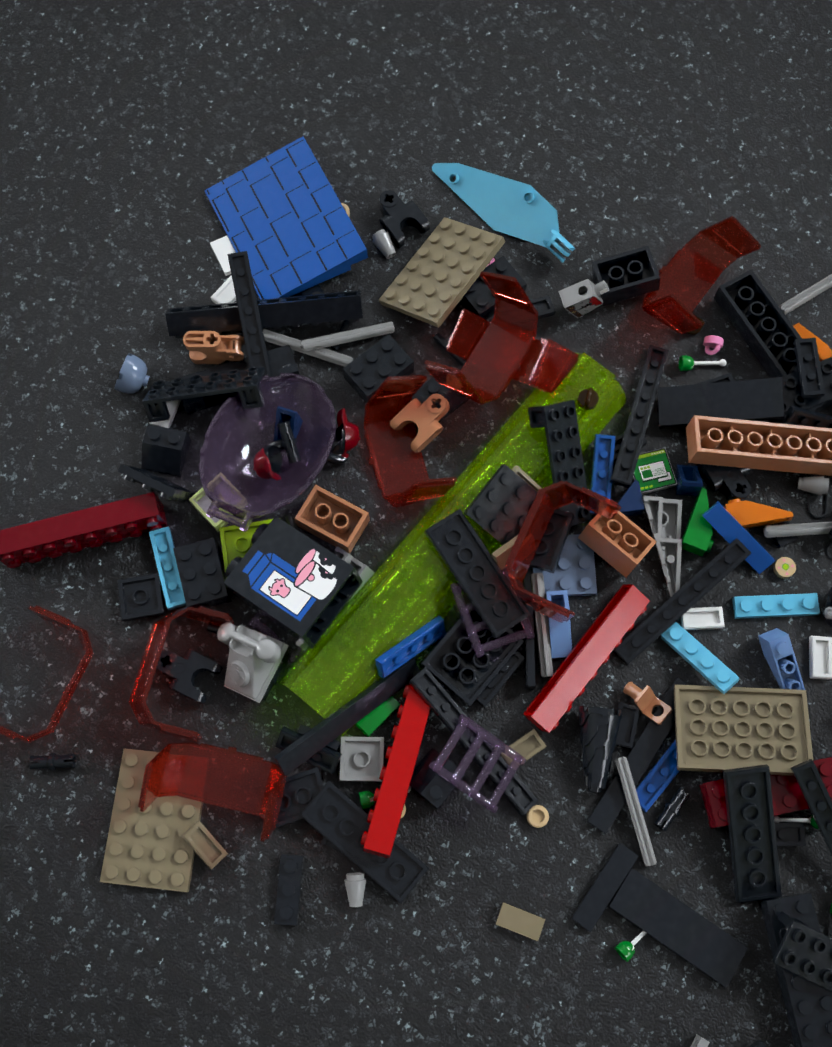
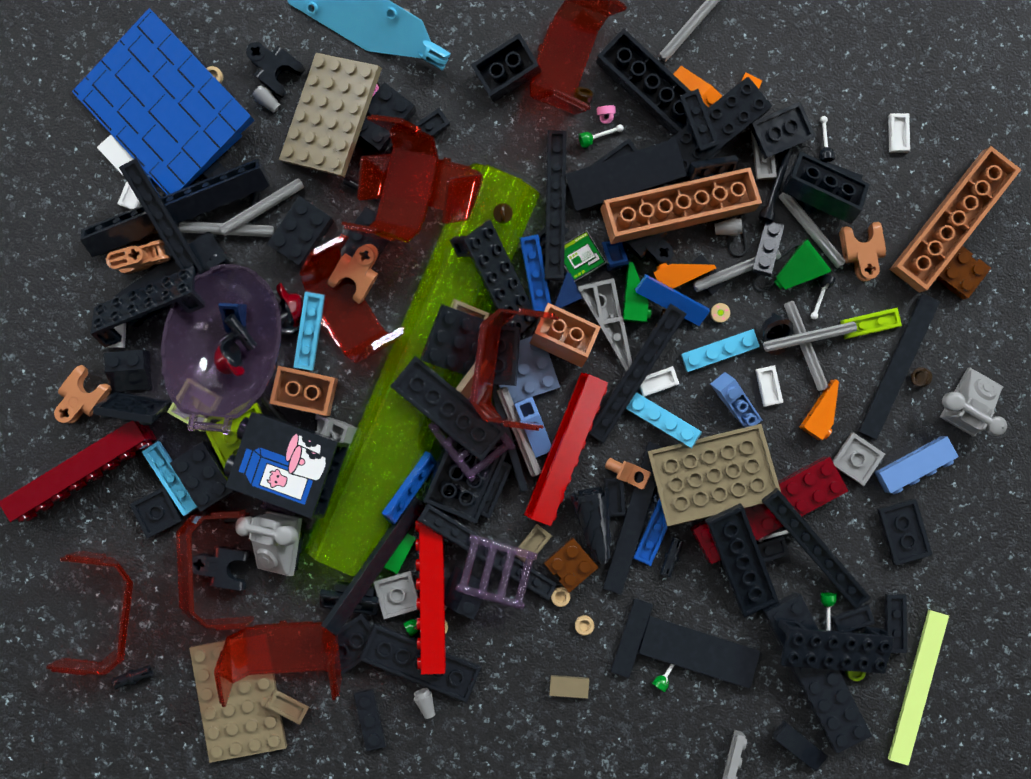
camera: 20 degrees left, 15 degrees up
(102, 462) = (76, 399): none -> nougat piece
(132, 375) = (71, 307): sand blue cylinder -> none
(357, 462) = (309, 331): none -> medium azure plate
(555, 856) = (584, 625): none -> tan tile
(560, 783) = (571, 564): none -> reddish brown piece
(583, 297) = (471, 104): light grey torso -> none
(635, 811) = (641, 568): light grey axle -> none

